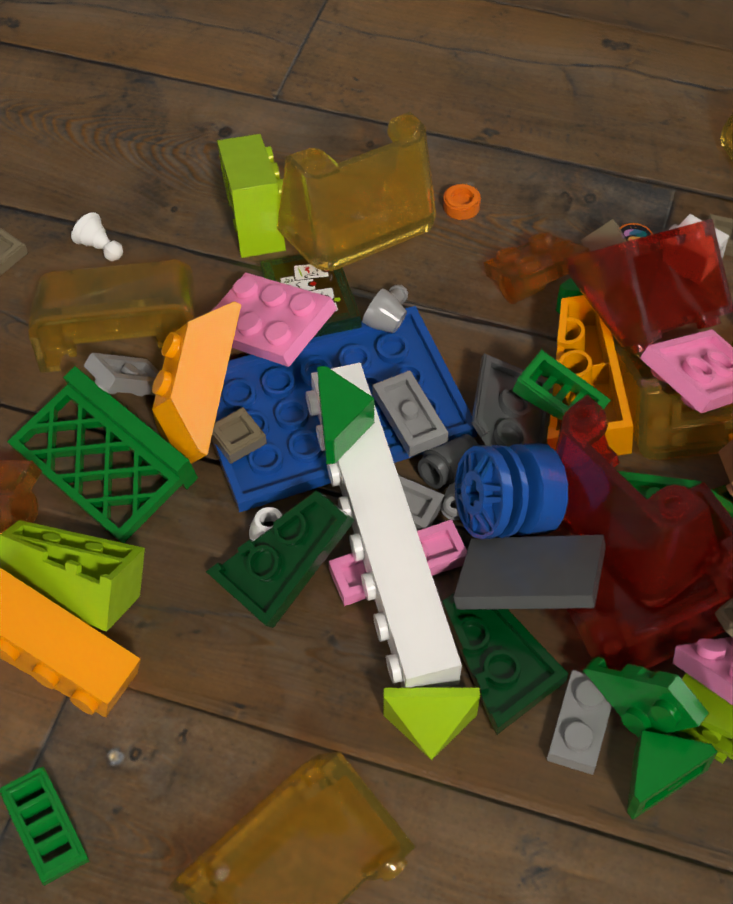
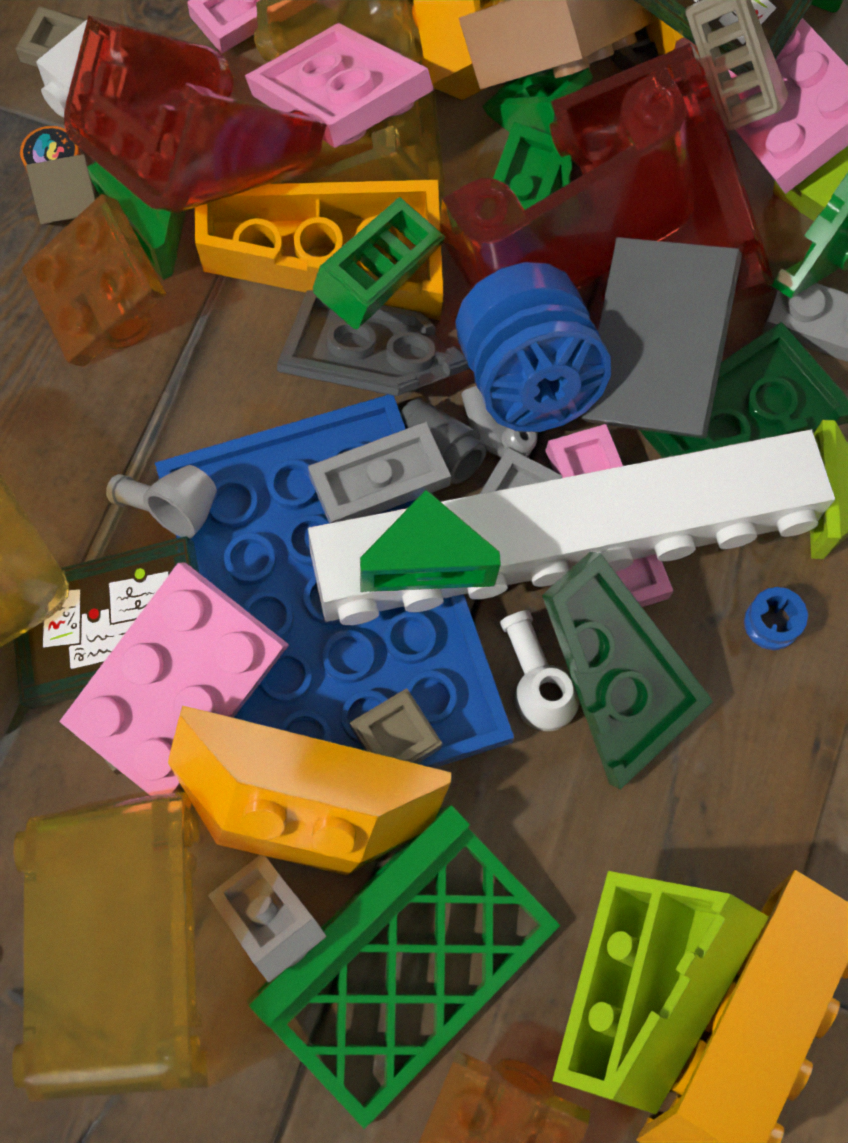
camera: 90 degrees left, 15 degrees up
(337, 661) = (781, 599): none -> blue bush

